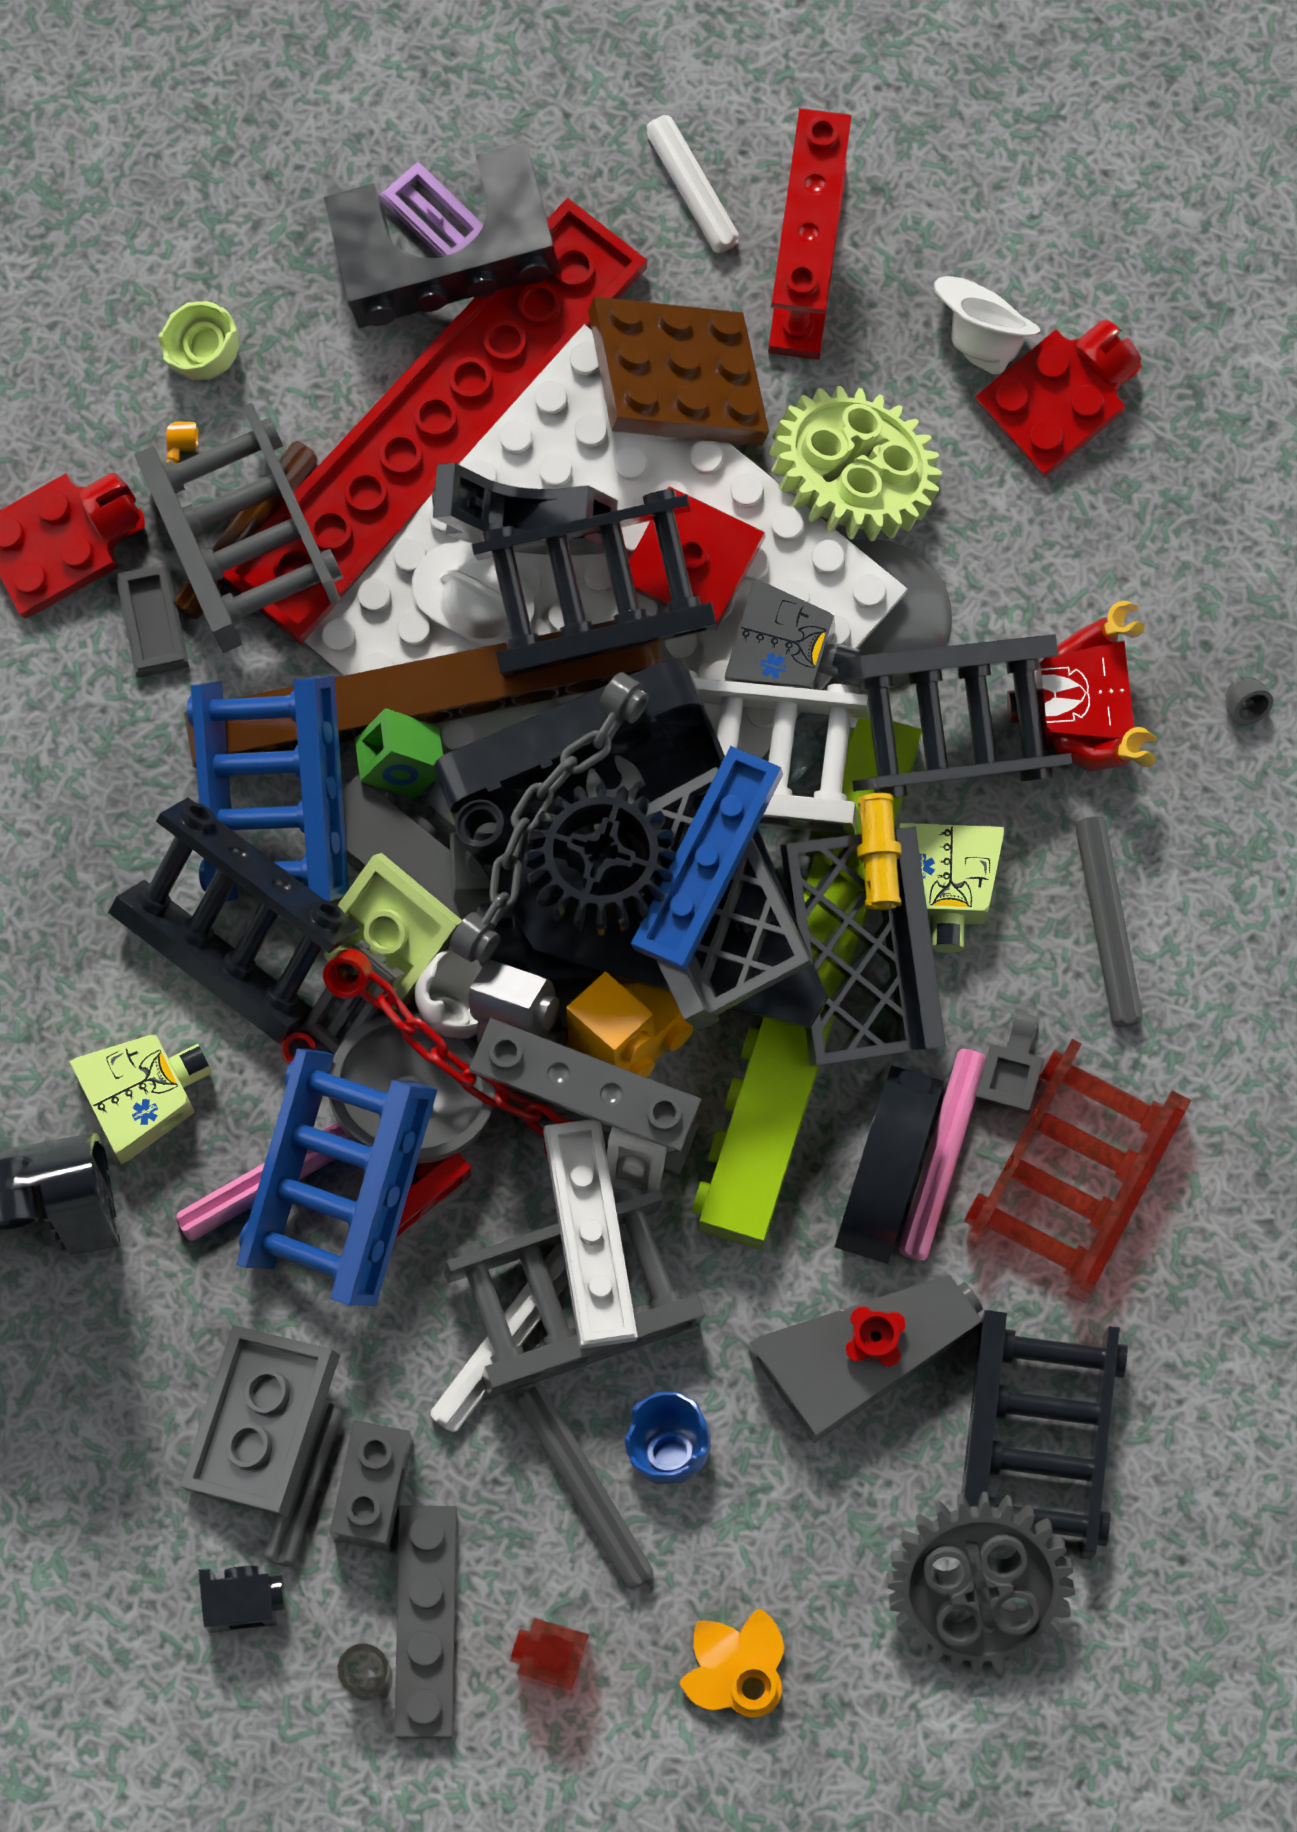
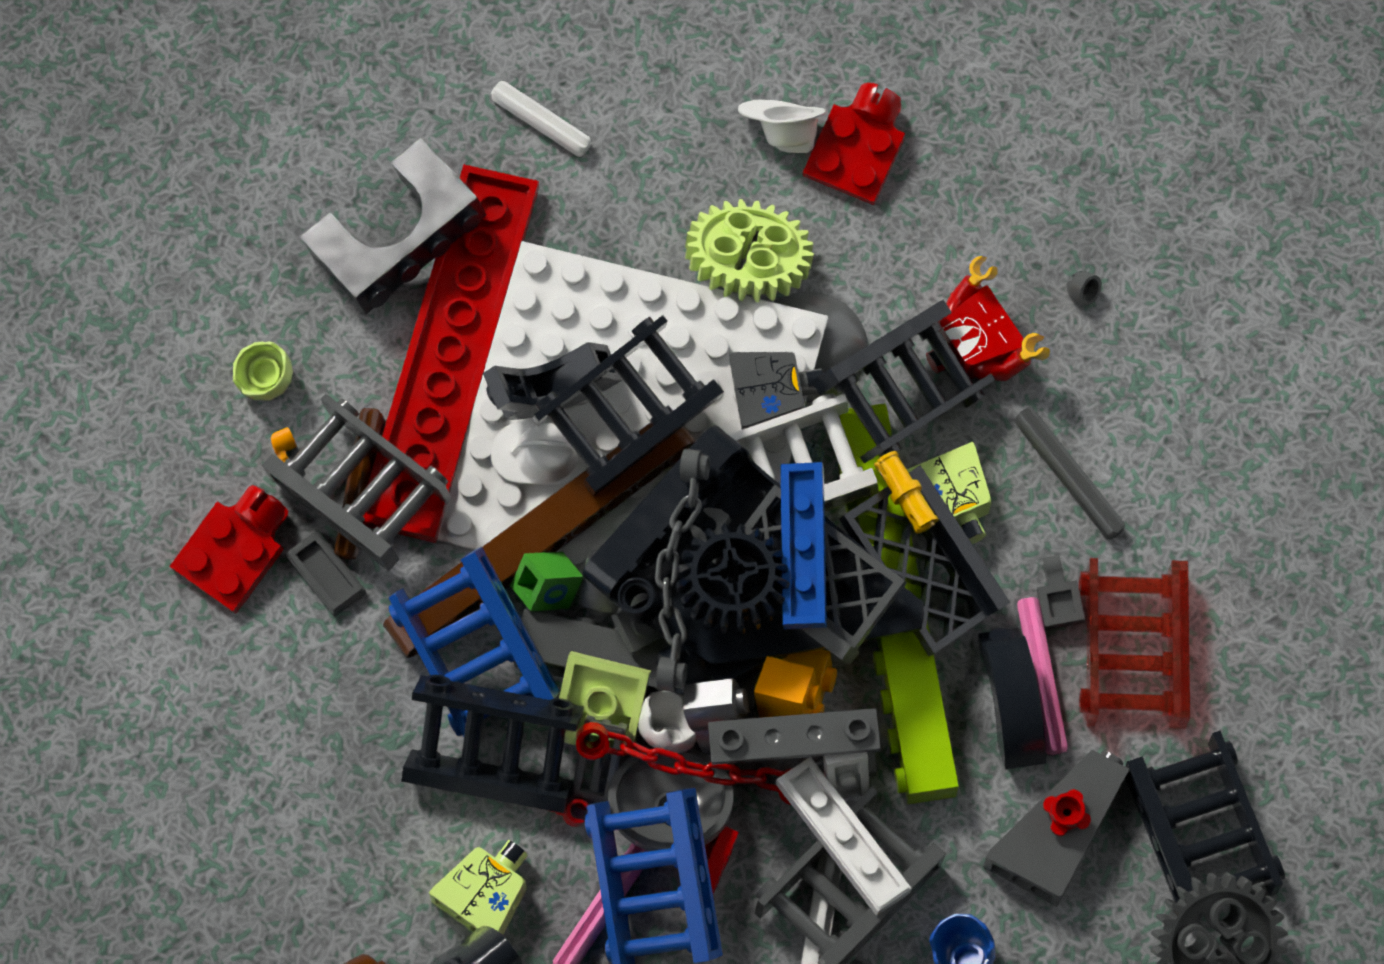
camera: 25 degrees left, 5 degrees down
(416, 225) = (382, 203): lavender tile -> none
(677, 371) = (601, 243): reddish brown plate -> none
(715, 551) = (693, 345): red plate -> none
(809, 233) = (642, 114): red fence -> none

